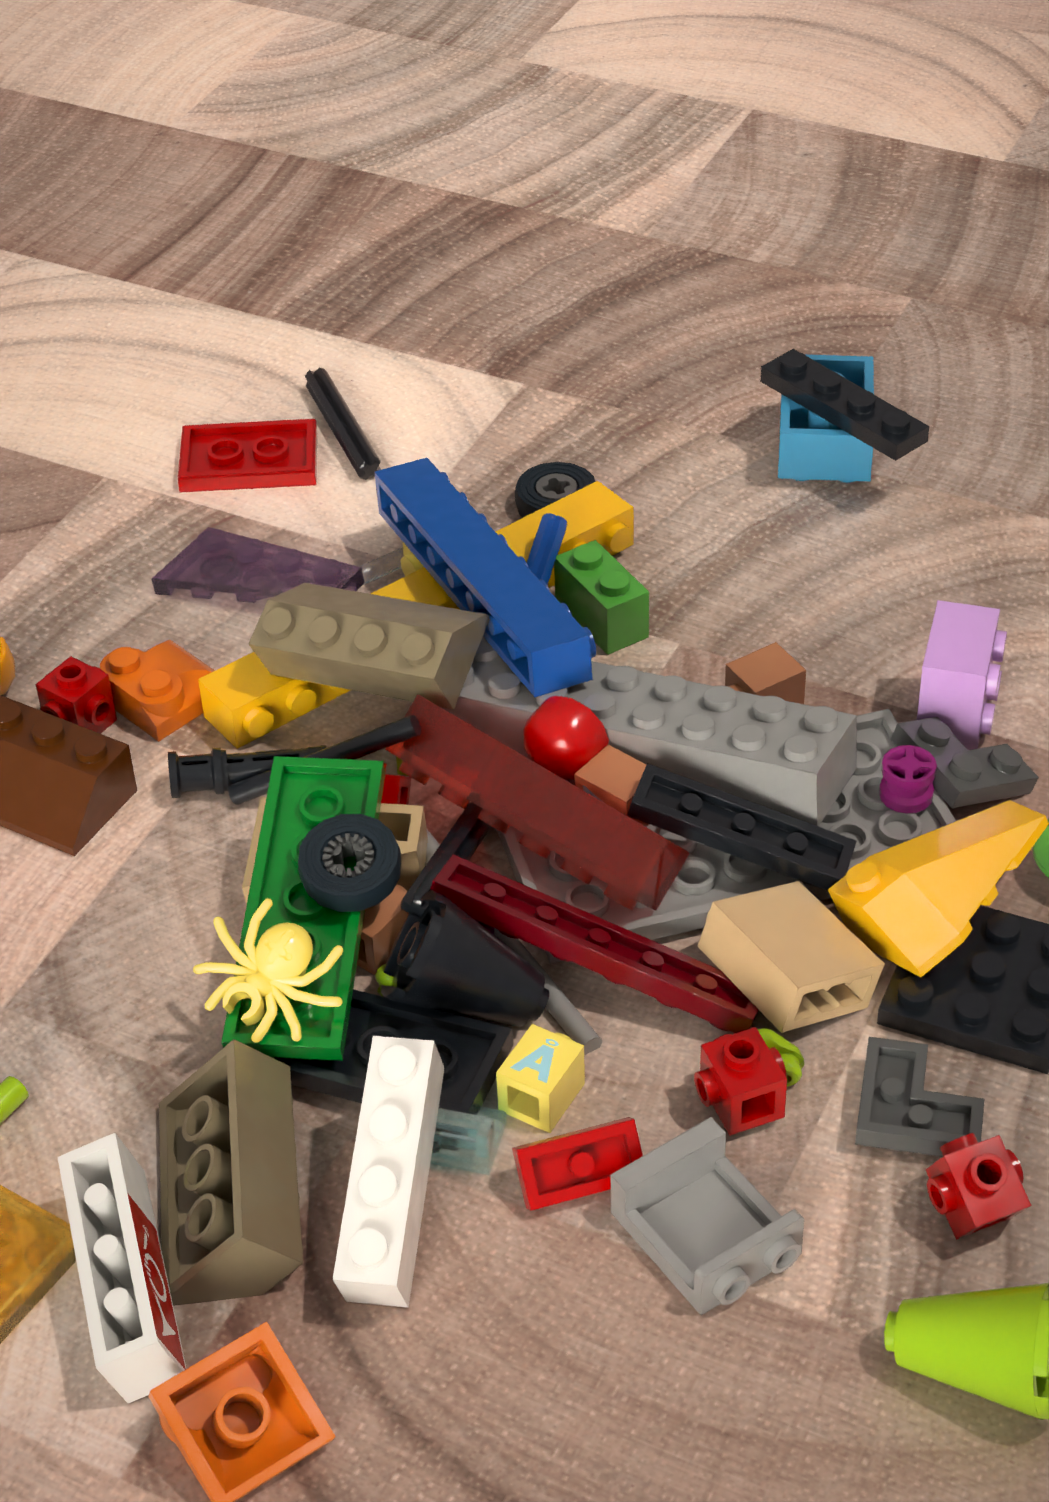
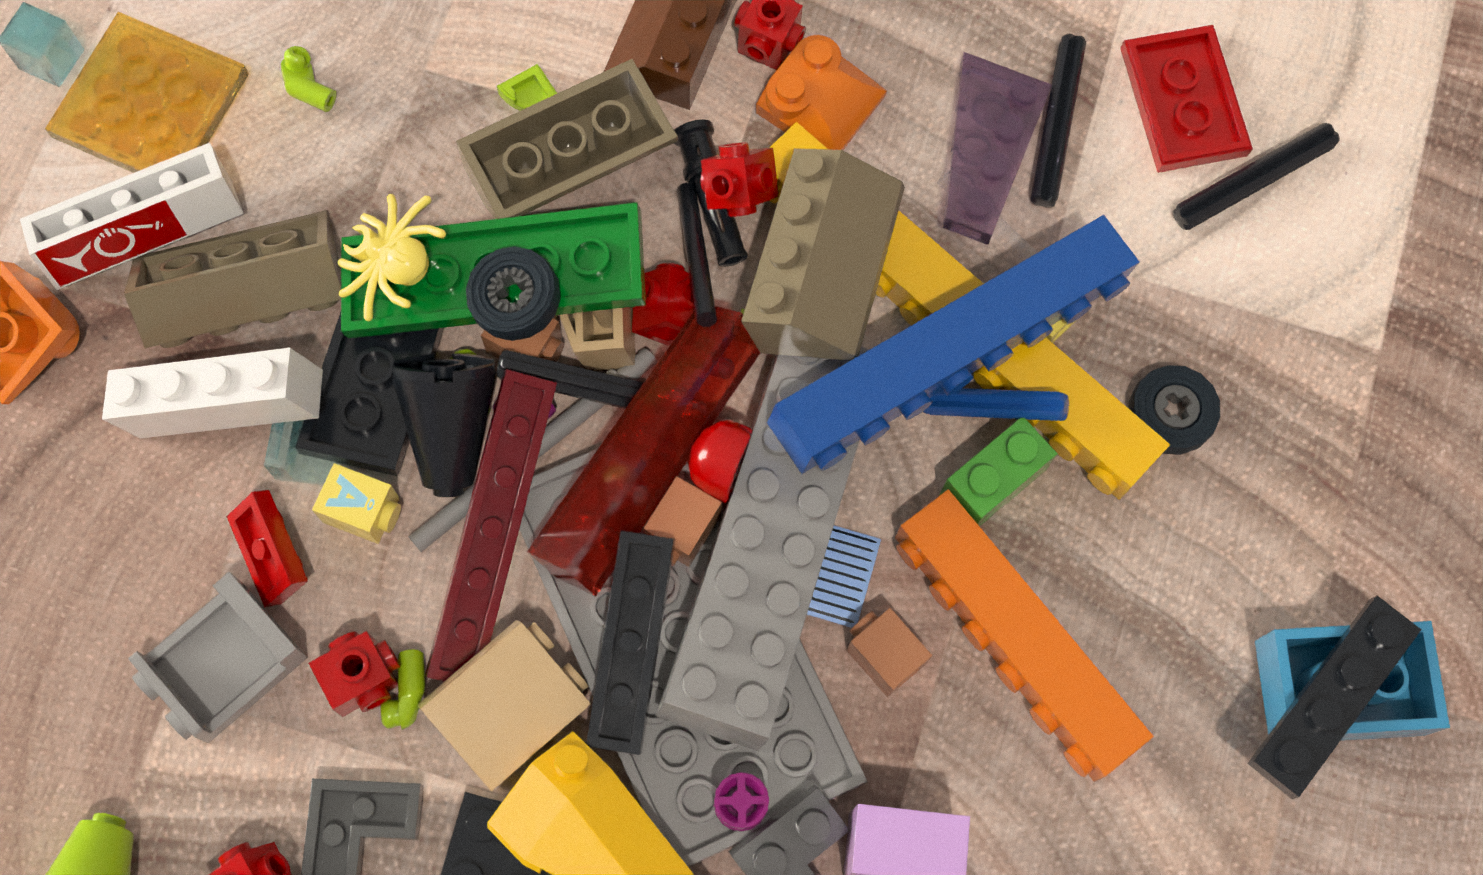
camera: 75 degrees right, 30 degrees up
(72, 909) = (526, 88): none -> lime tile
(167, 857) = (565, 142): none -> dark tan slope
(197, 519) = (1058, 121): none -> black axle
(238, 716) = (739, 178): none -> red brick
(756, 602) = (1022, 637): none -> orange brick

